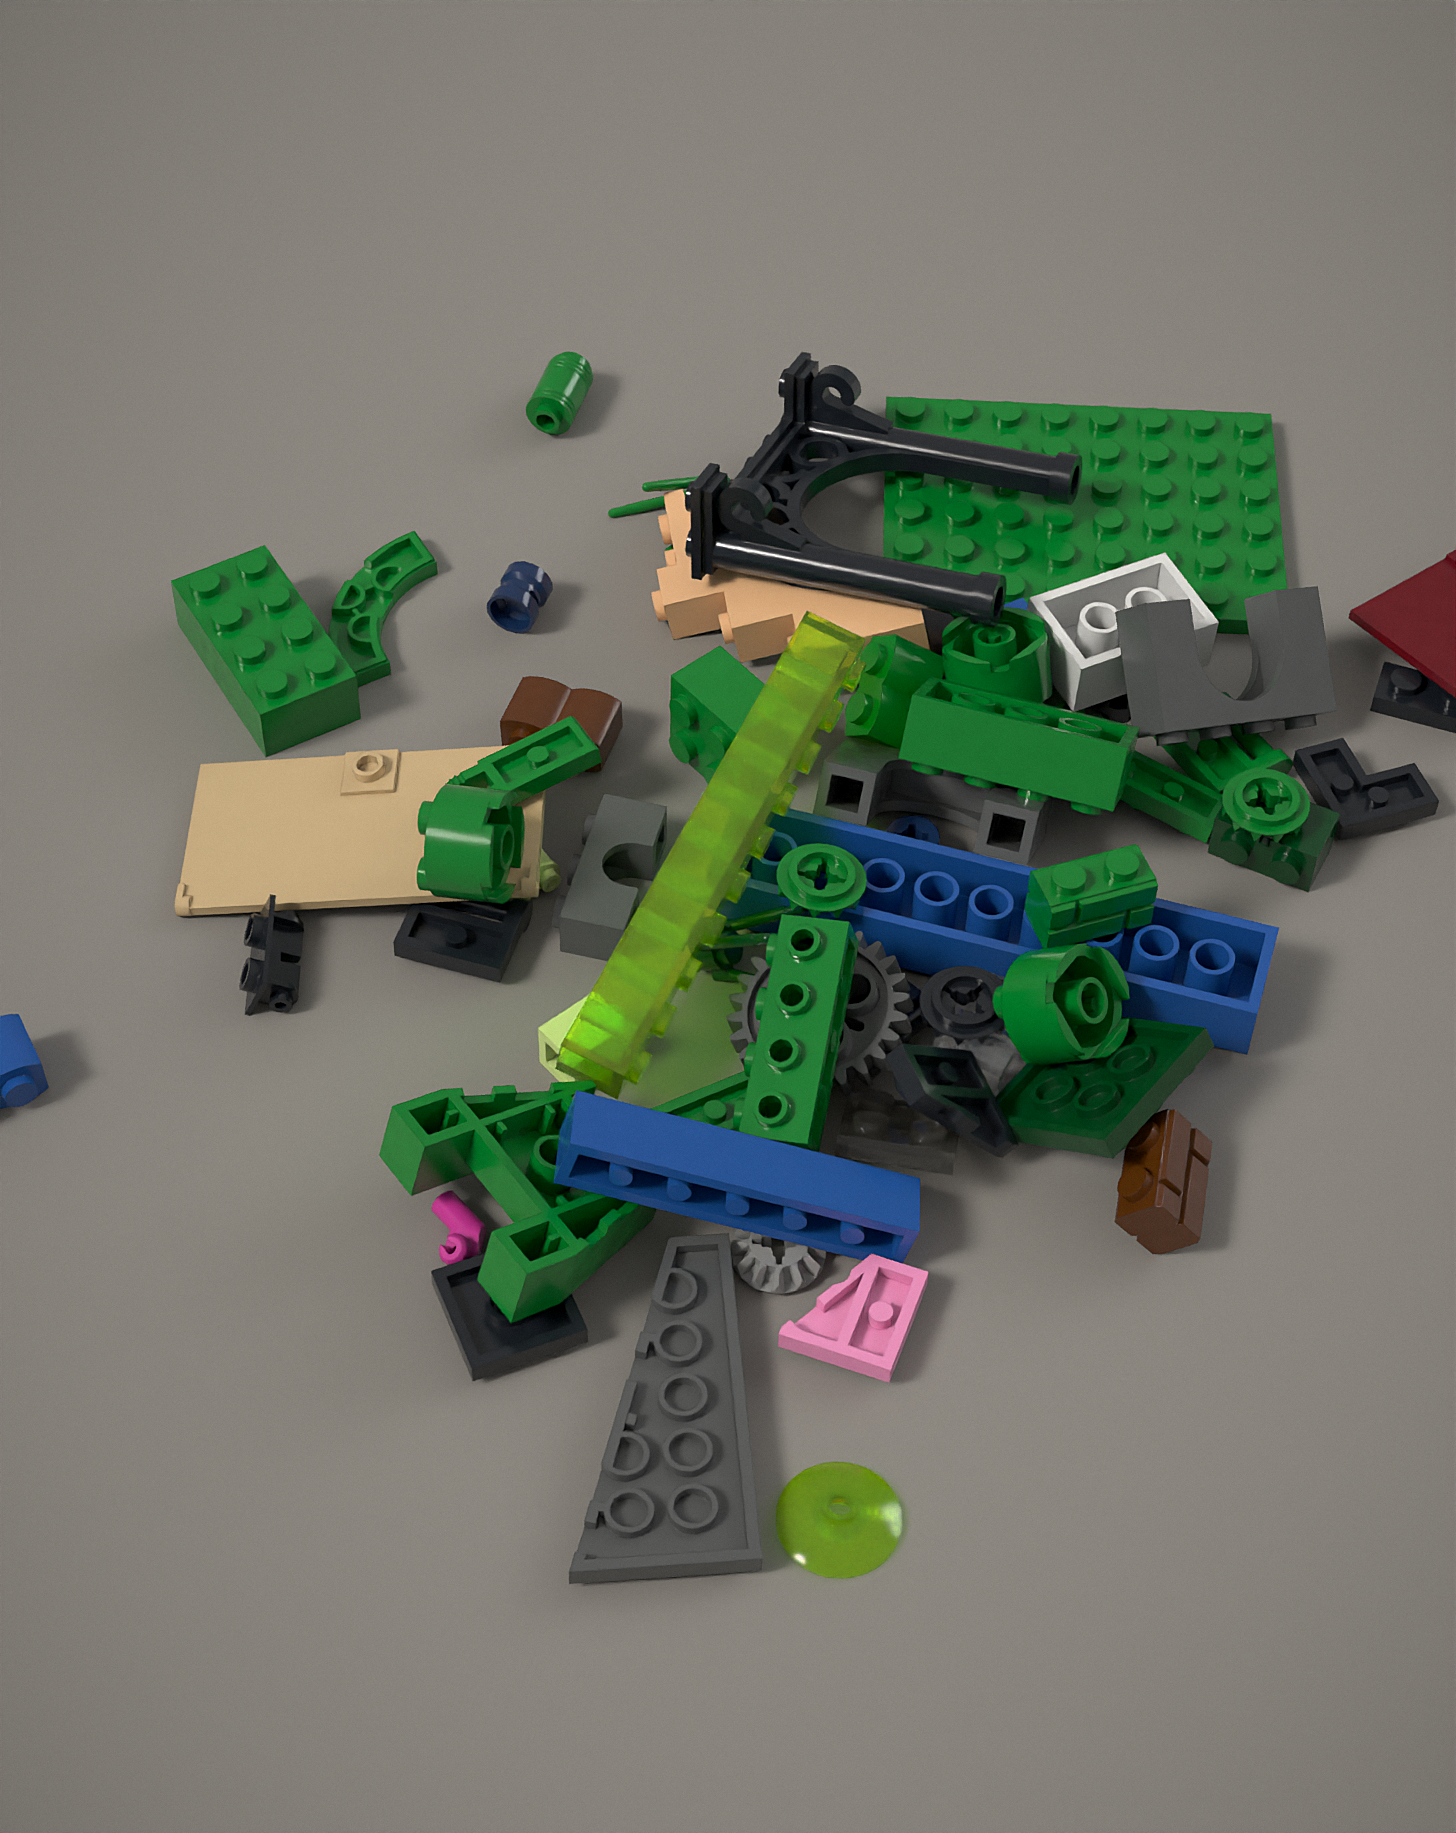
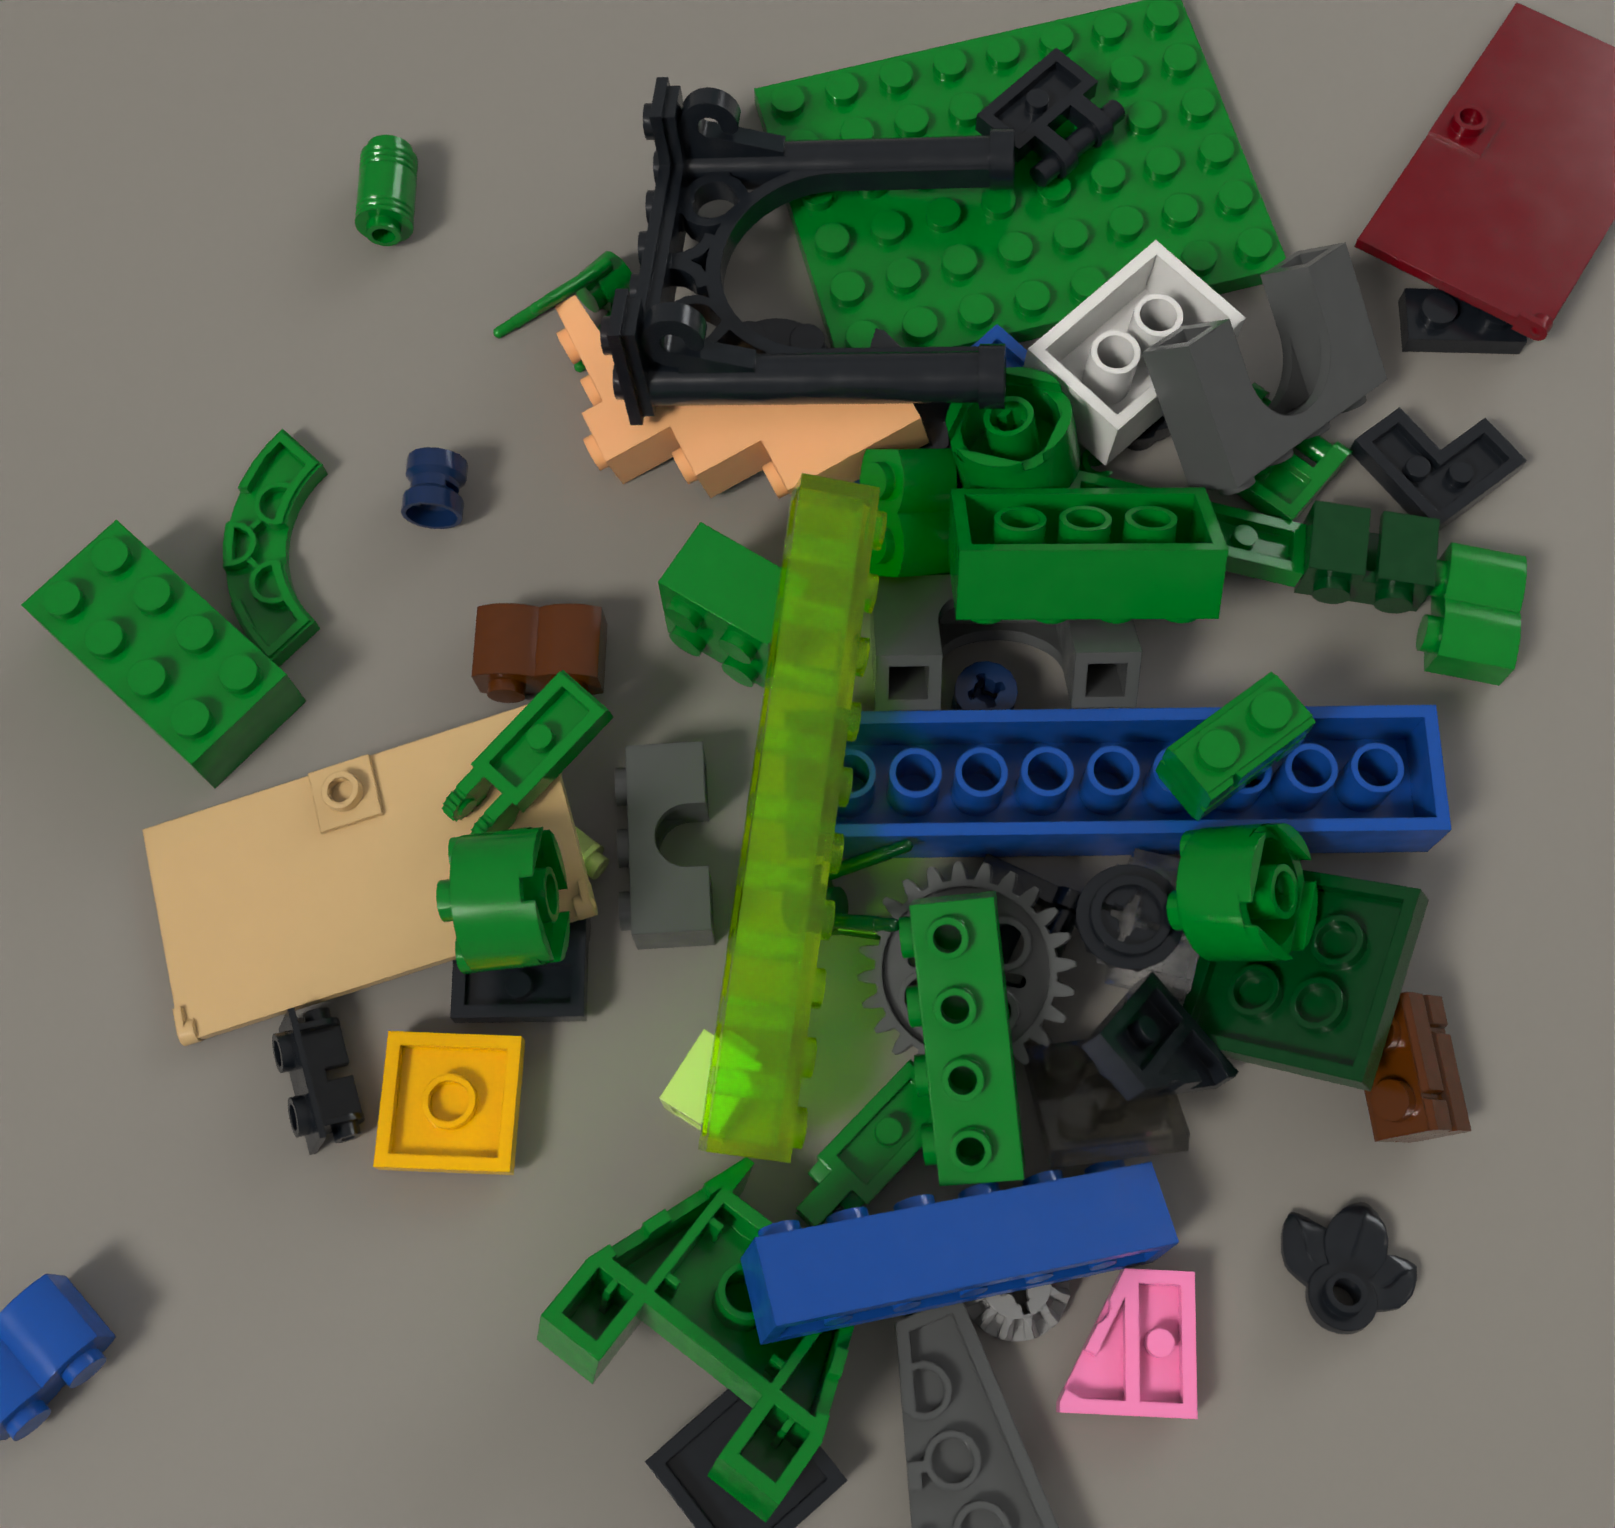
camera: 15 degrees left, 20 degrees up
(370, 1002) = (450, 1103): none -> yellow plate
(466, 1229) = (663, 1385): dark pink arm -> none
(803, 865) = (941, 791): green gear -> none
(1060, 1316) = (1349, 1256): none -> black plate
(1121, 453) = (1040, 104): none -> black plate
(1277, 792) = (1367, 515): green gear -> none
(1349, 896) = (1474, 614): none -> green brick

